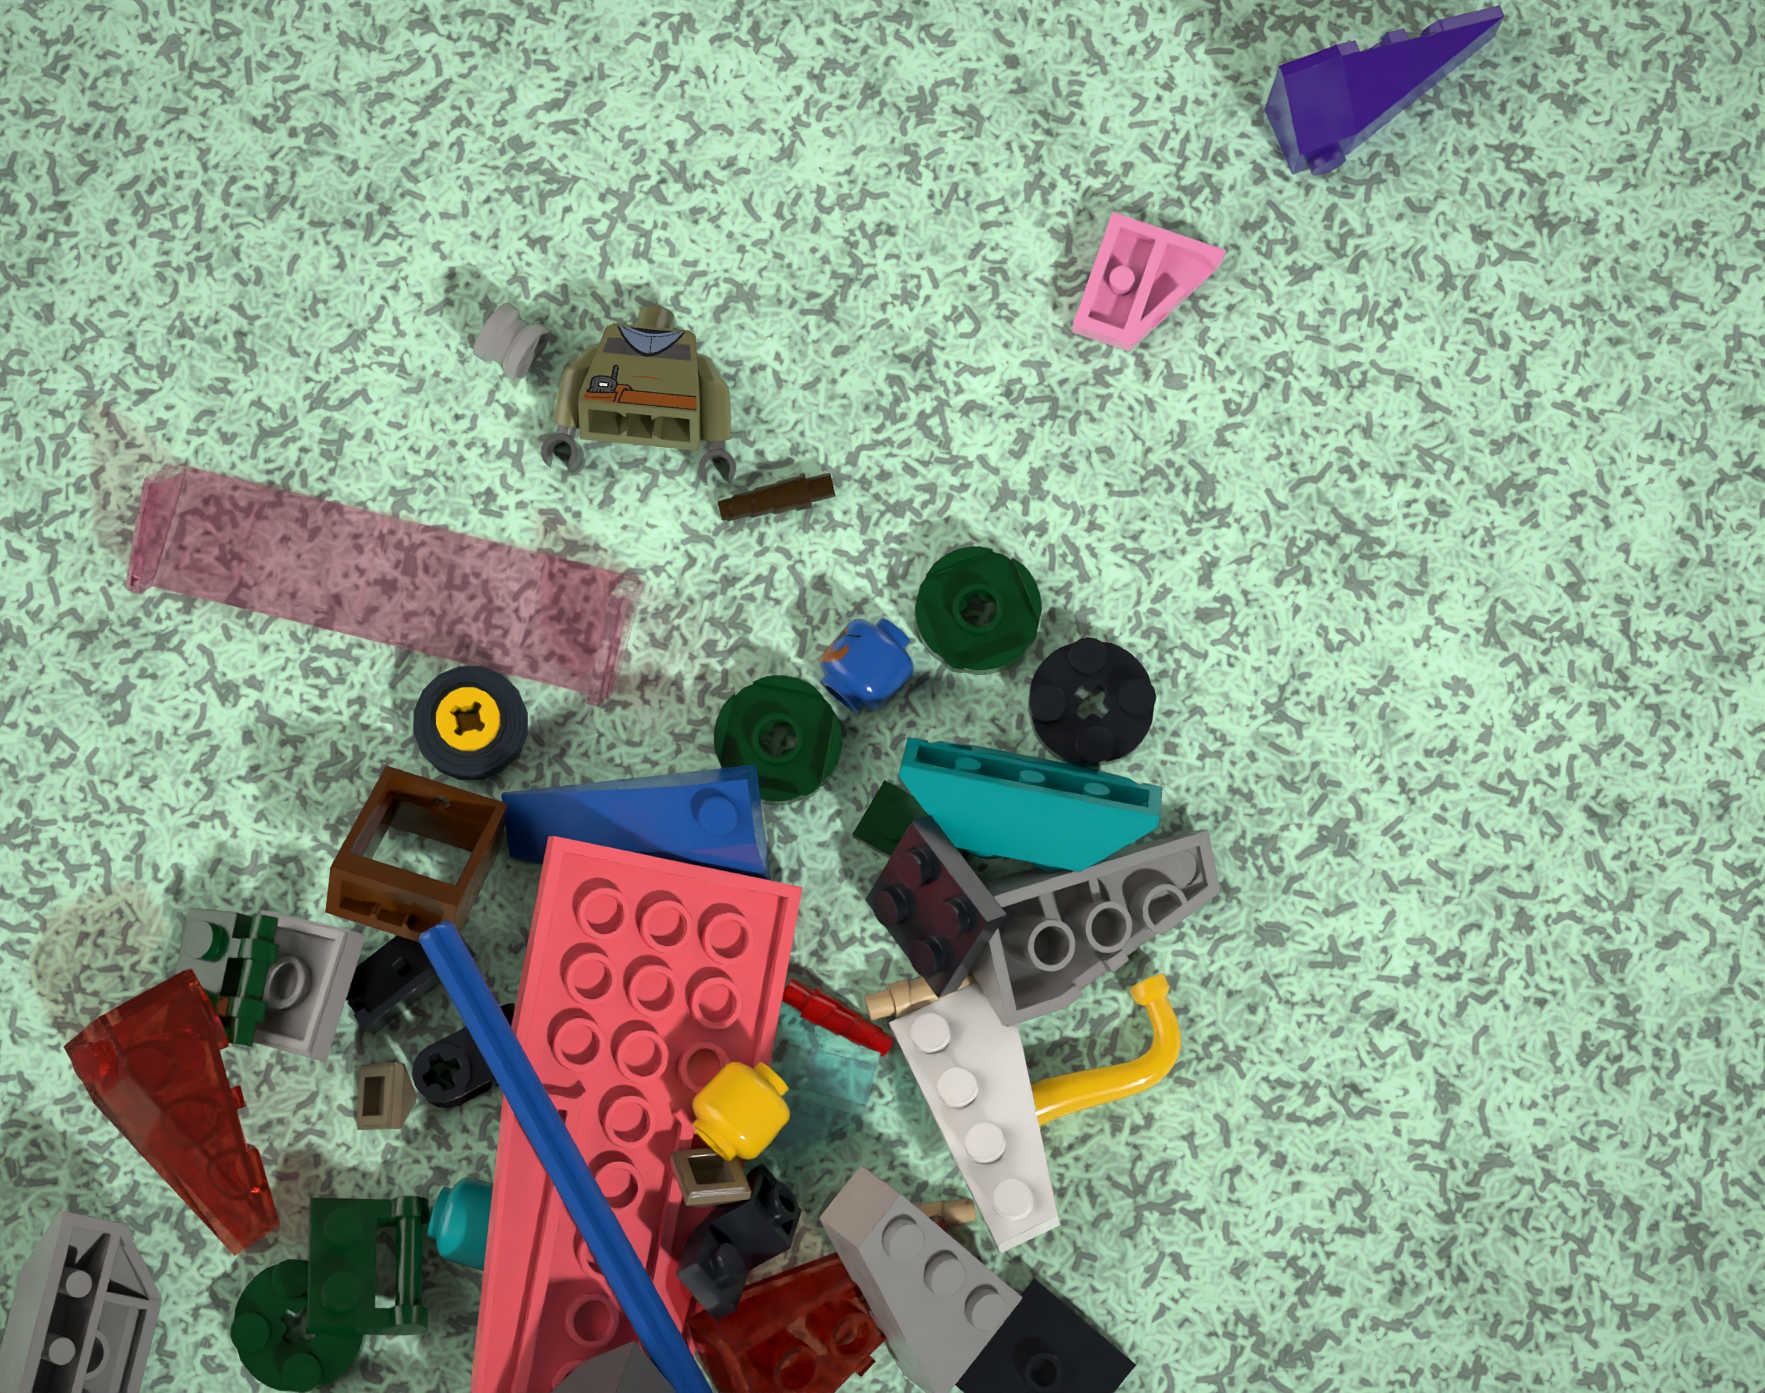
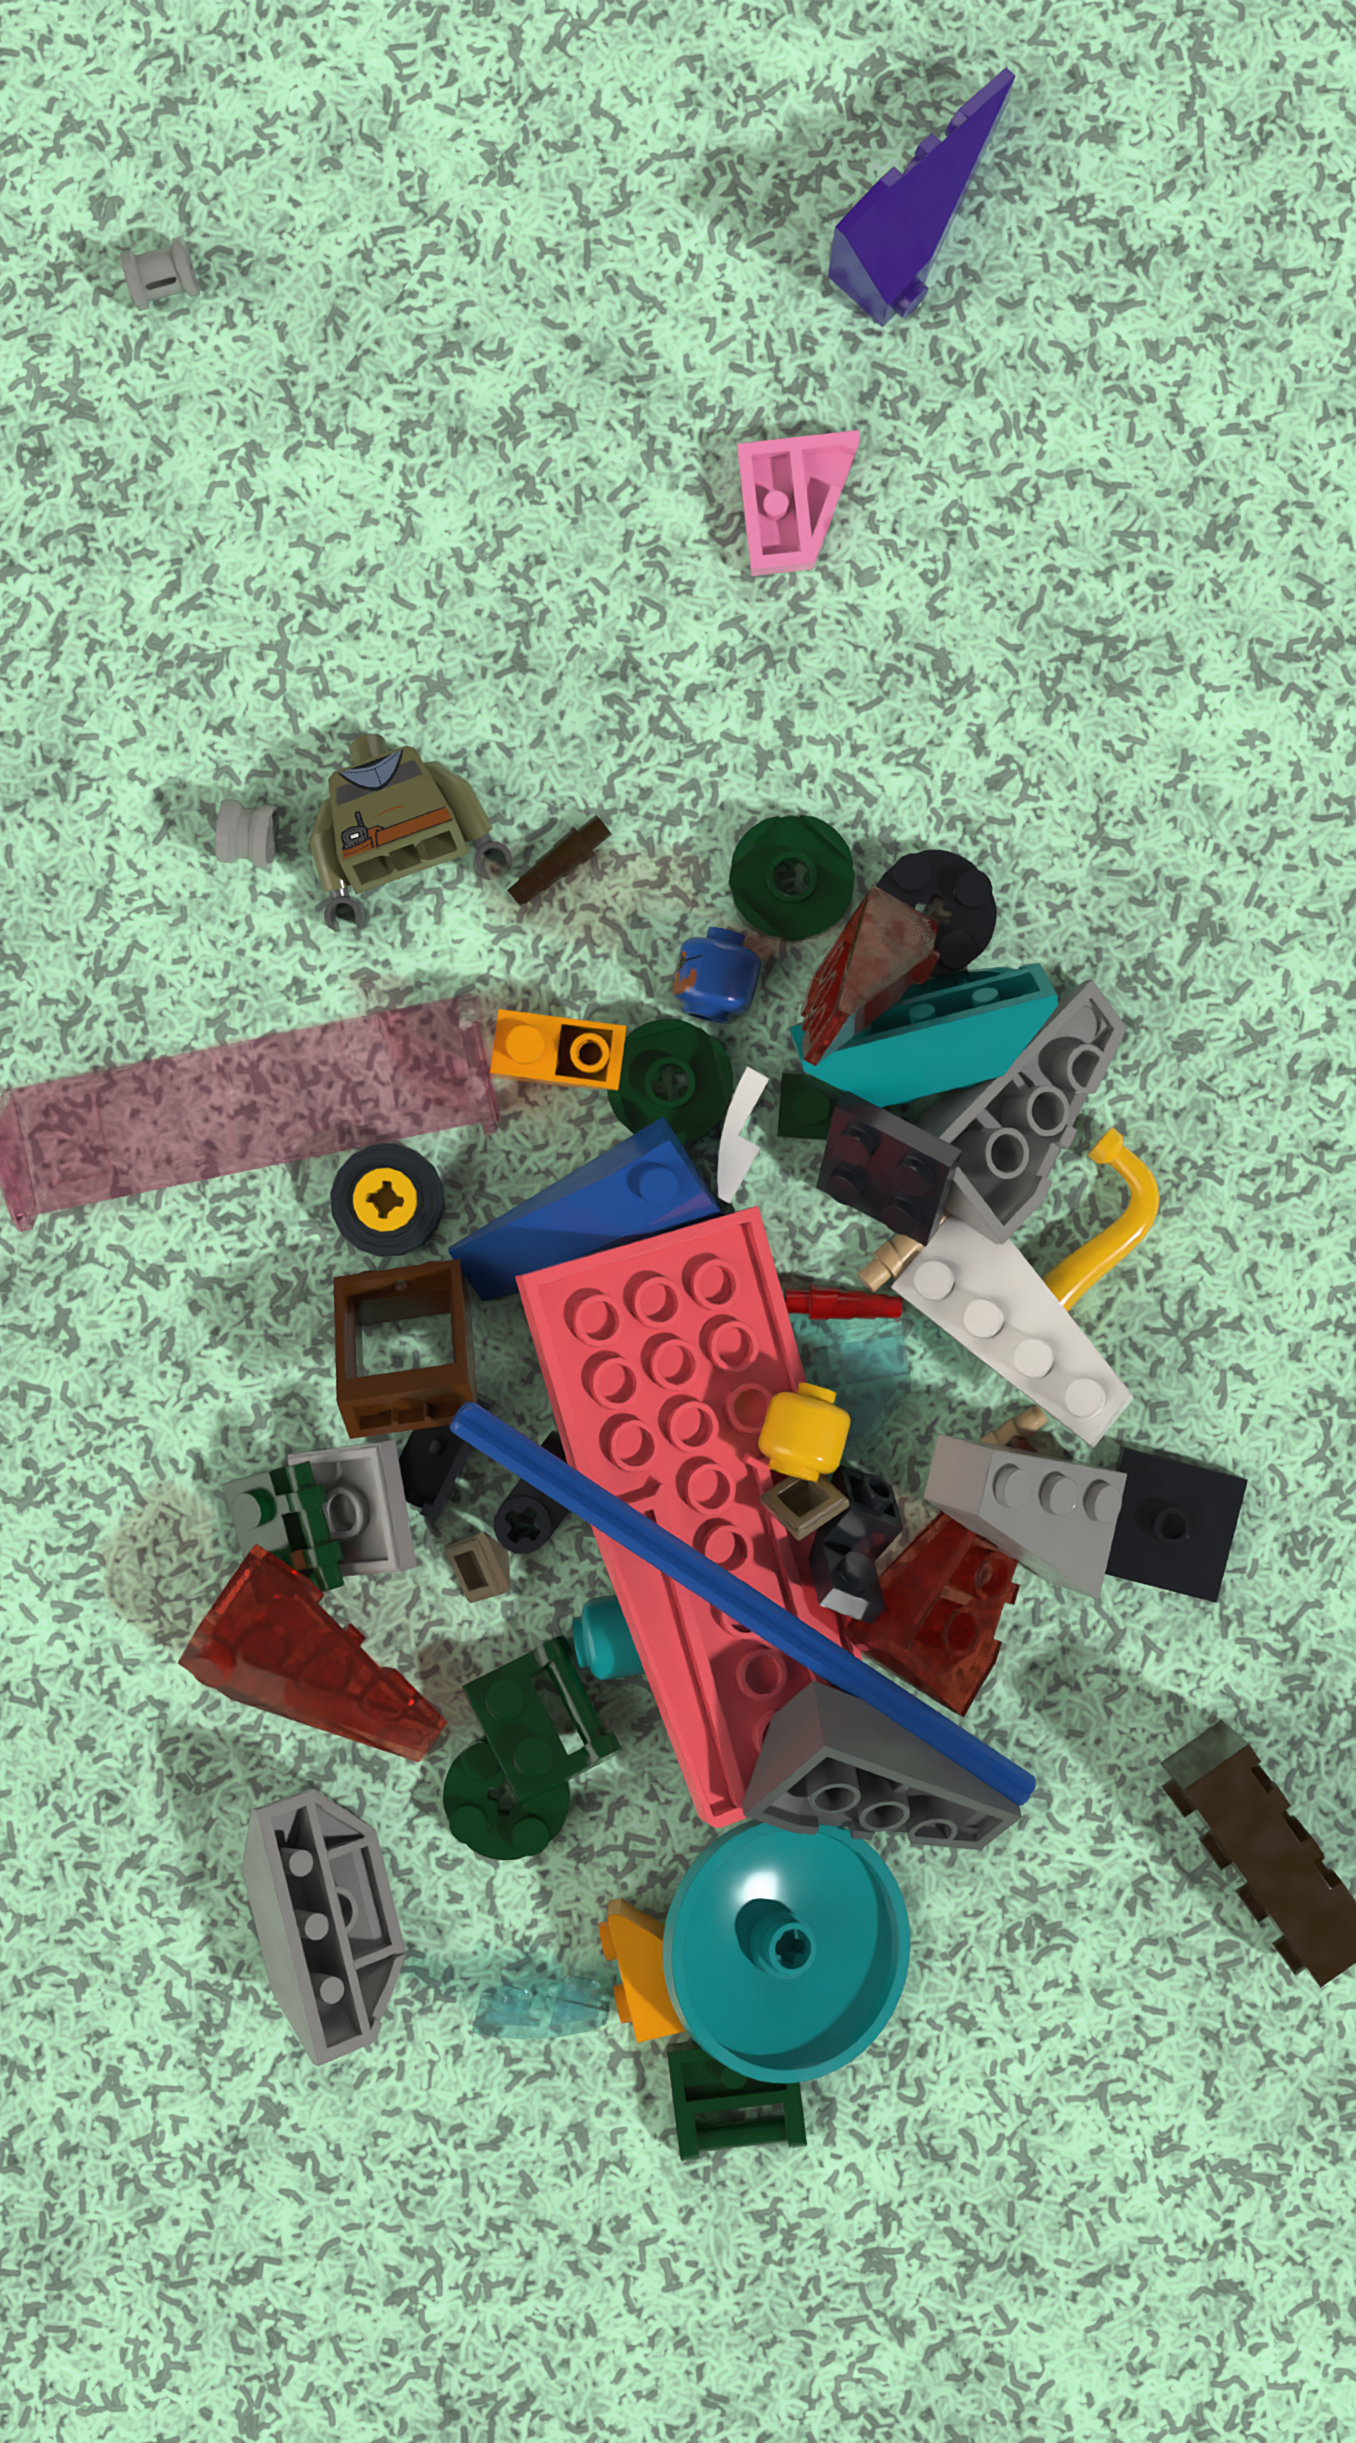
camera: 25 degrees left, 10 degrees up
(688, 660) = (557, 1051): none -> light orange slope
(804, 830) = (734, 1151): none -> white slope
(1004, 719) = (866, 971): none -> clear red wedge

